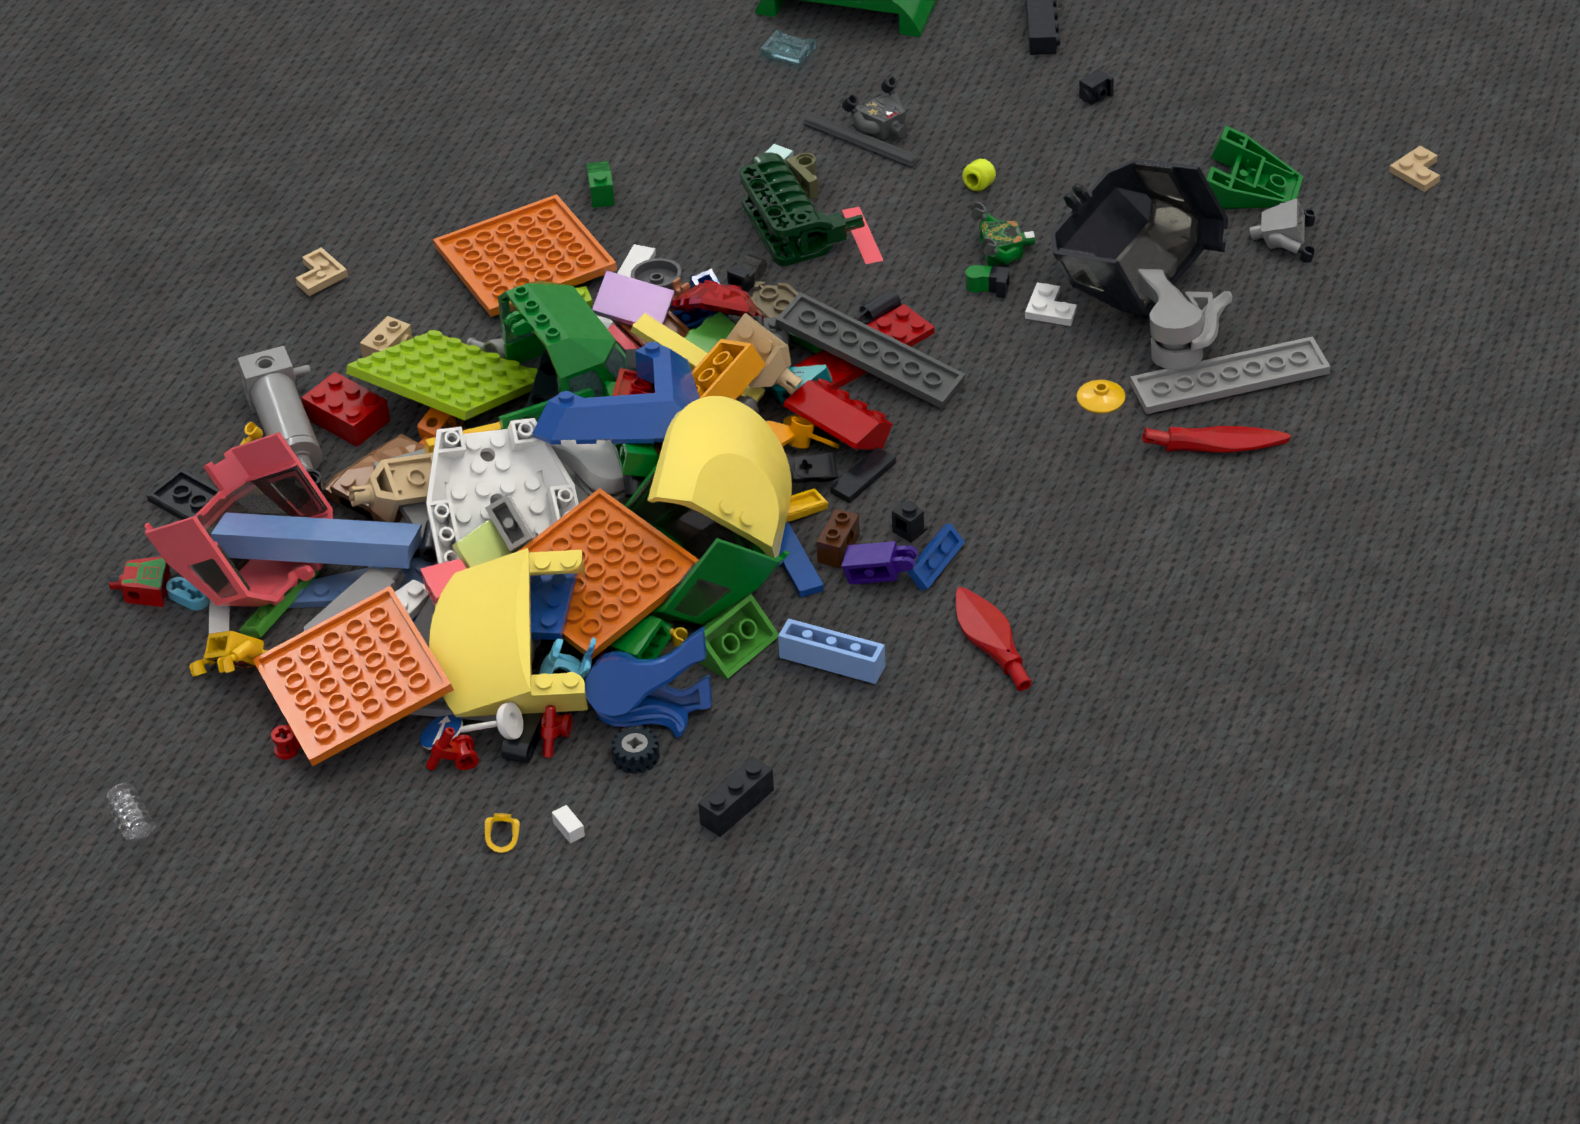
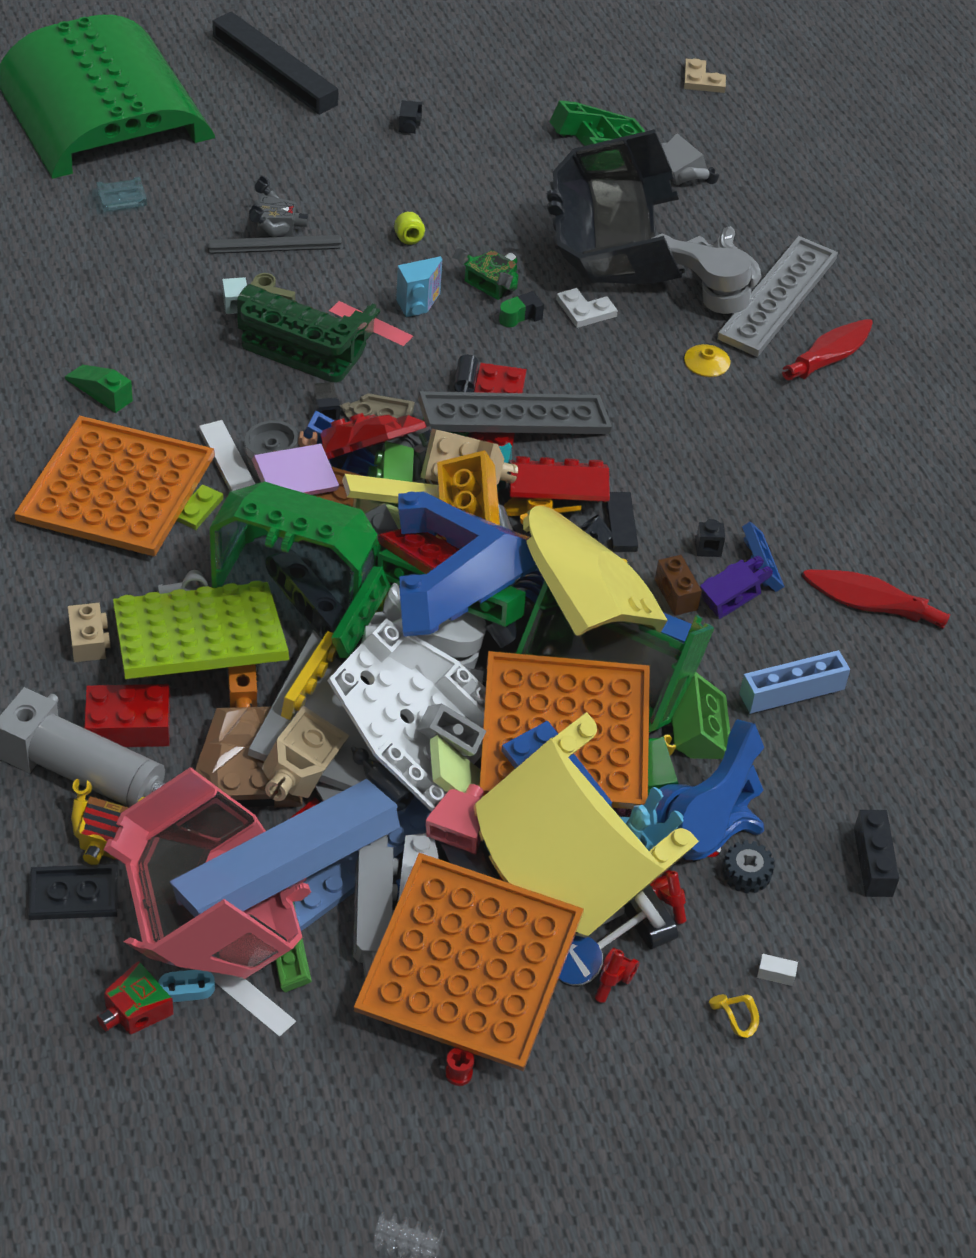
camera: 50 degrees left, 5 degrees up
(228, 650) = (315, 1012): yellow torso -> none
(921, 220) = (418, 285): none -> medium azure slope

